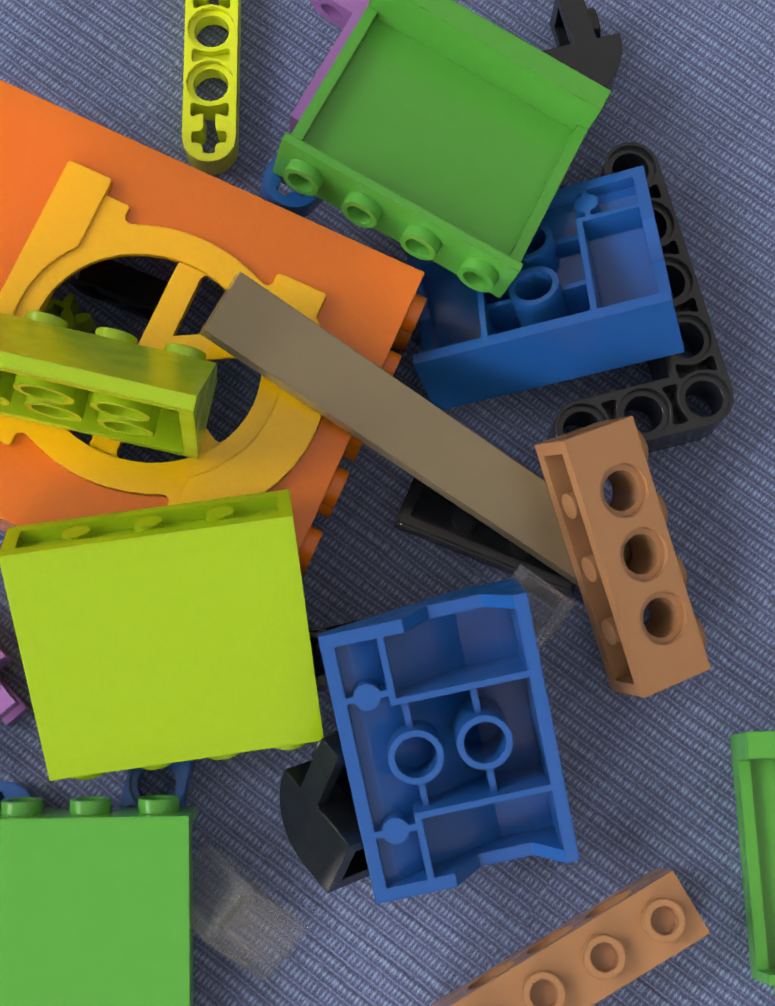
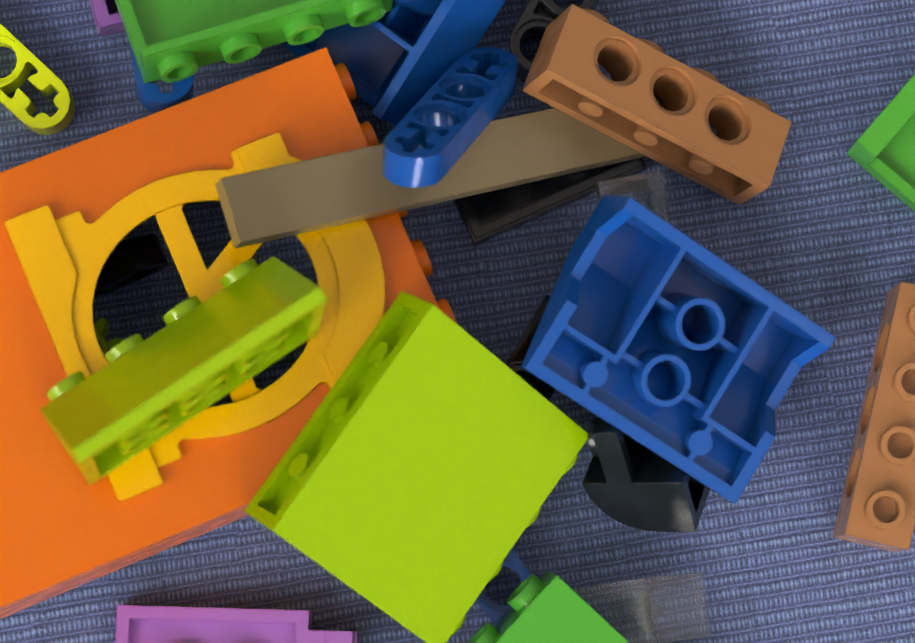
camera: 45 degrees left, 5 degrees up
(455, 405) = (449, 117): none -> blue beam

